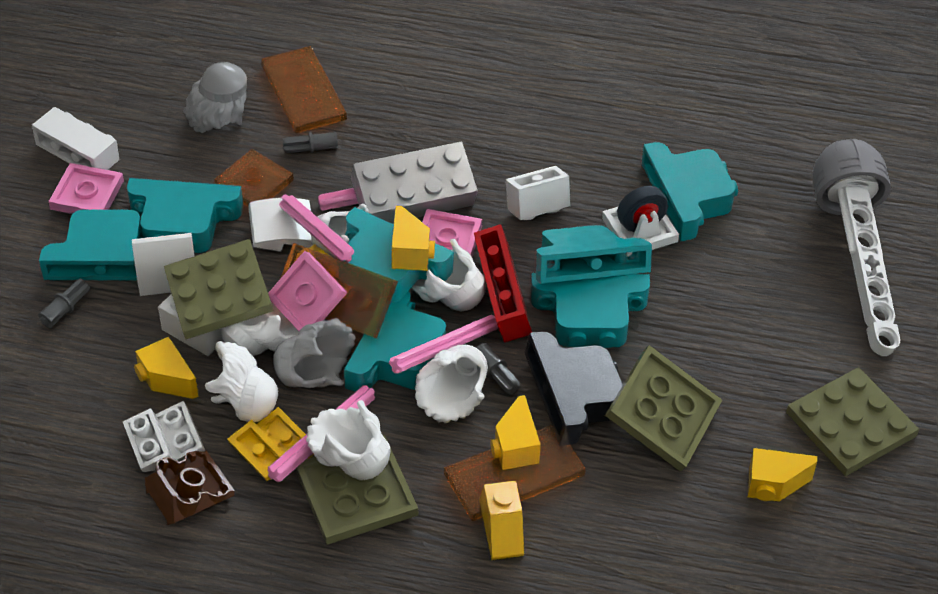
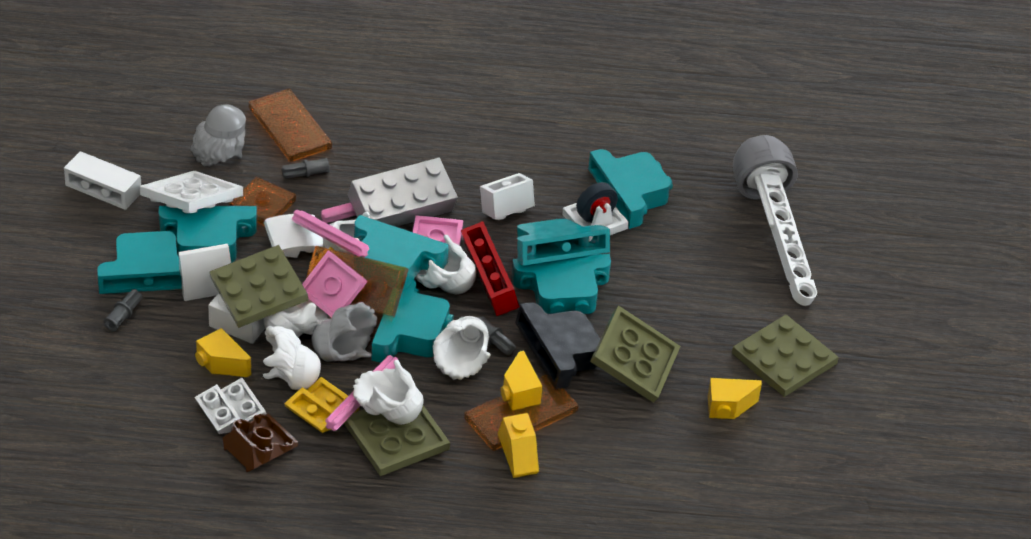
camera: 10 degrees left, 5 degrees down
(85, 189) = (120, 217): bright pink plate -> none
(170, 163) = (191, 191): none -> white plate
(410, 242) = (414, 238): yellow slope -> none
(430, 349) = (441, 321): bright pink axle -> none

